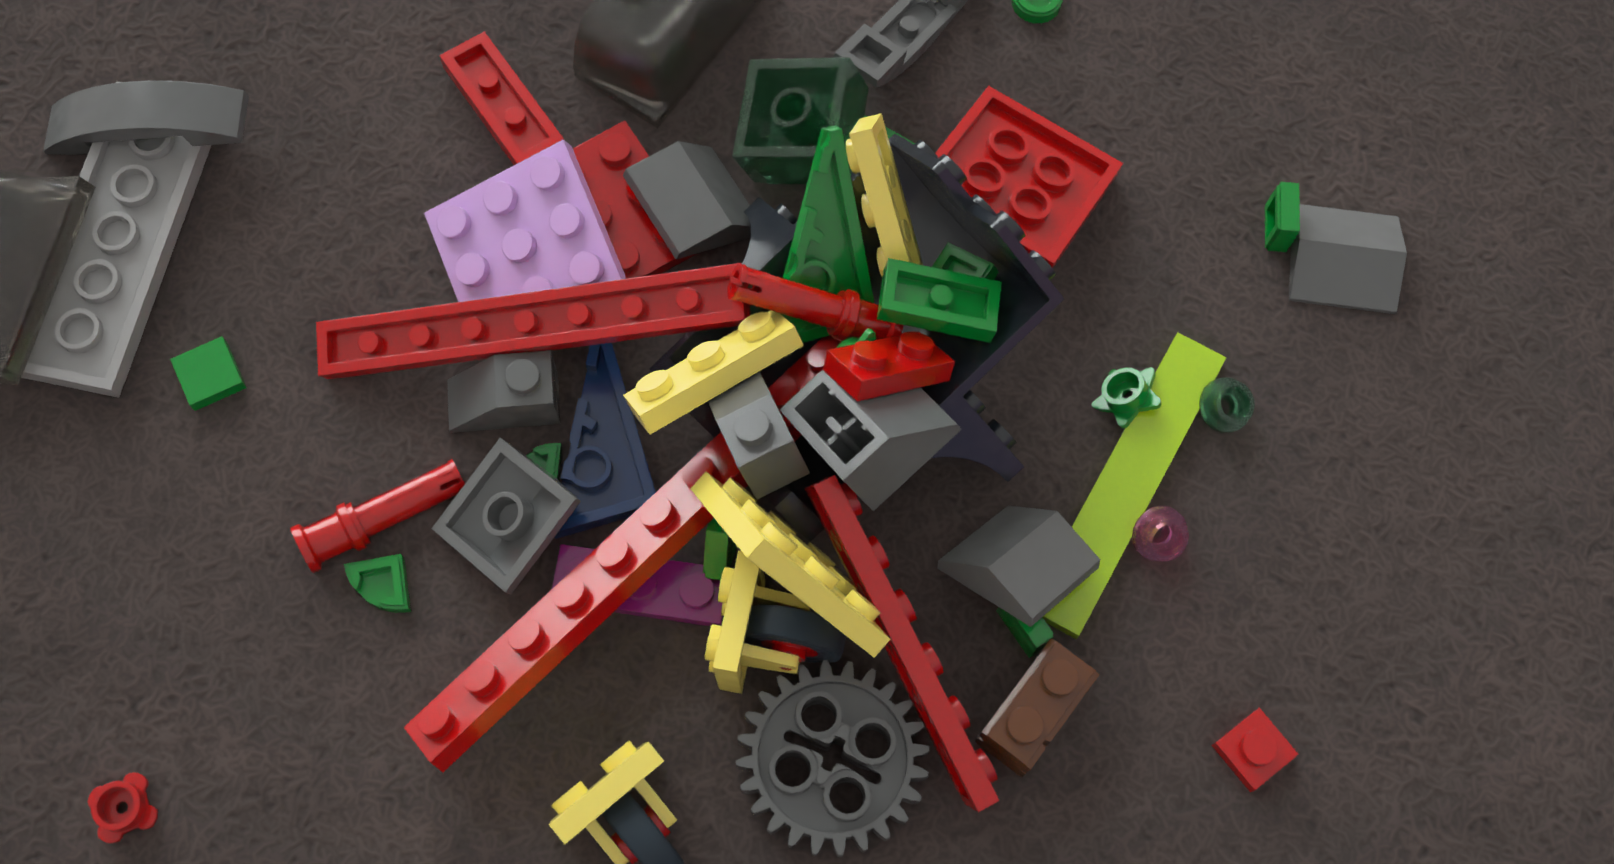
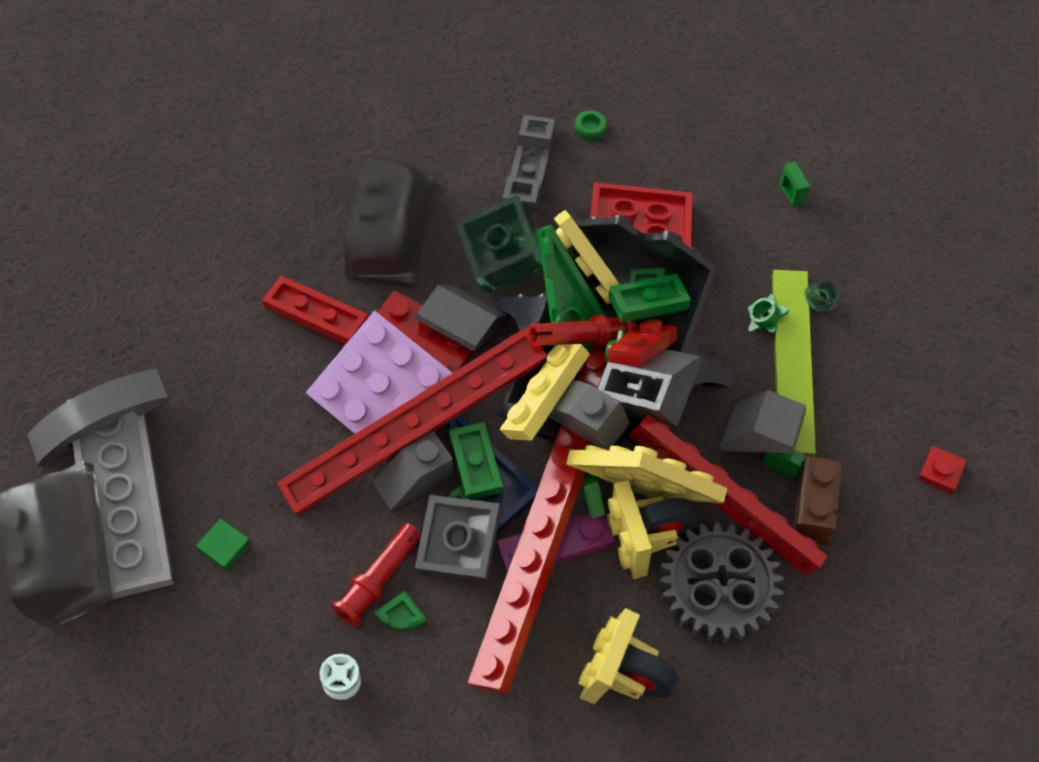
camera: 25 degrees left, 10 degrees down
(239, 626) = (336, 669): none -> light aqua wheel
(585, 420) = (475, 461): none -> green plate
(1172, 538) = (827, 379): clear pink plate -> none
(1347, 259) = (841, 193): dark grey slope -> none

